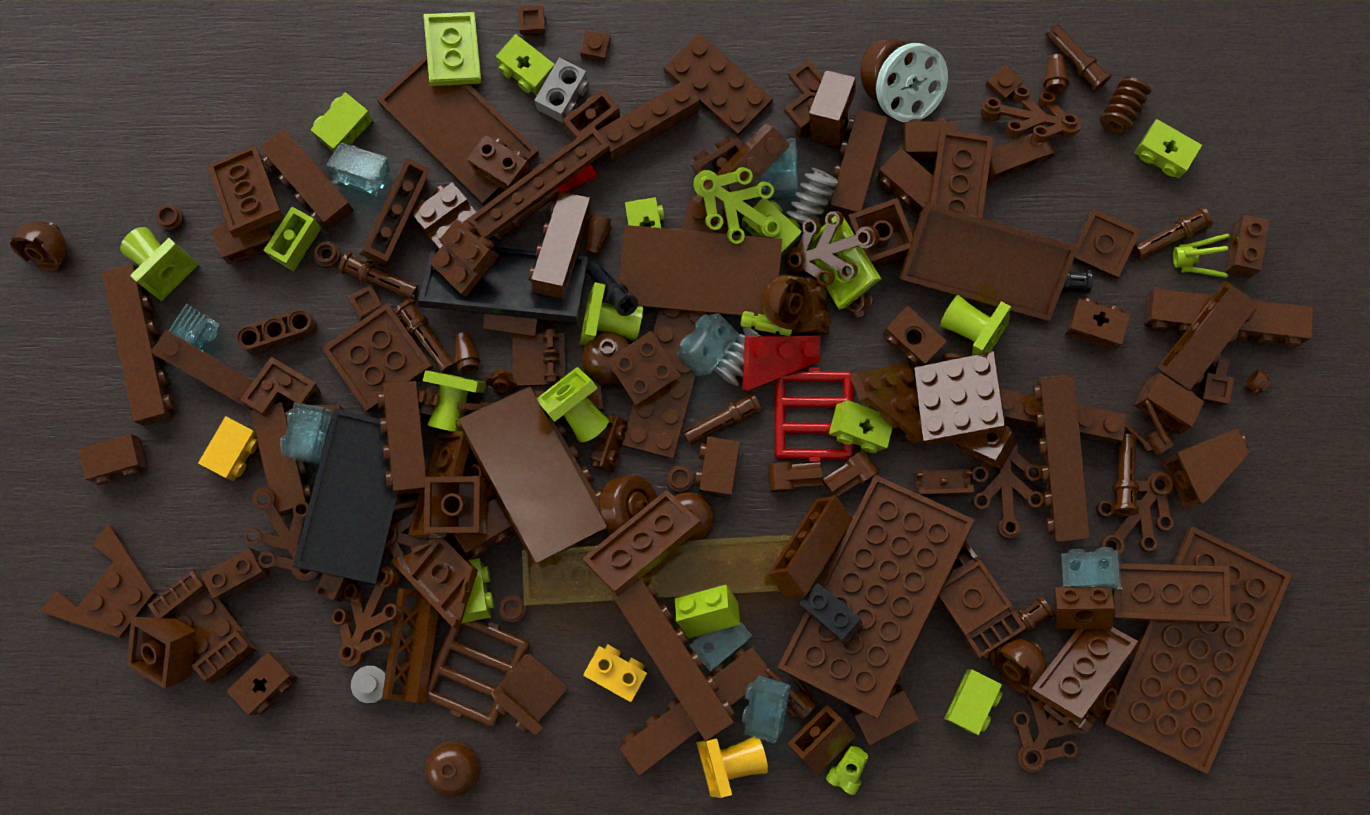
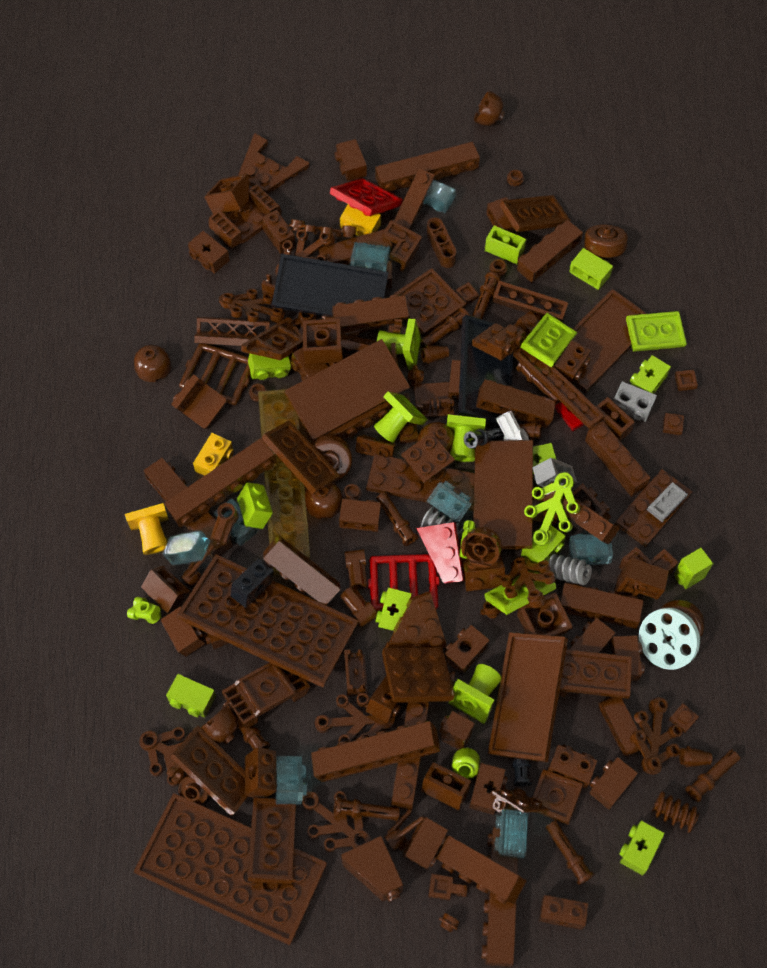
camera: 85 degrees right, 15 degrees down
(160, 265) = (479, 173): lime plant -> none
(190, 436) = (366, 197): none -> red plate
(248, 494) = (348, 231): none -> reddish brown plant
(299, 98) = (606, 240): none -> reddish brown wheel
(358, 169) = (559, 279): clear light blue brick -> none
(368, 684) = (207, 308): light grey piece -> none
(466, 189) = (548, 339): none -> lime tile
(603, 253) = (511, 428): none -> white piece
(675, 202) = (548, 470): none -> light grey brick
(720, 63) = (667, 502): none -> light grey plate
(739, 654) = (223, 525): none -> reddish brown piece
(816, 41) = (693, 568): none -> lime brick
(1029, 354) = (456, 730): none -> reddish brown brick
(1068, 347) = (466, 763): none -> lime head
(1069, 217) = (573, 764): none -> reddish brown brick
(1091, 172) = (612, 783): none -> reddish brown brick
(1098, 372) = (446, 786): none -> reddish brown brick
(1122, 284) = (516, 800): none -> reddish brown hinge
(1166, 294) = (512, 834): none -> clear light blue brick
(1187, 255) = (551, 864): lime plant -> none

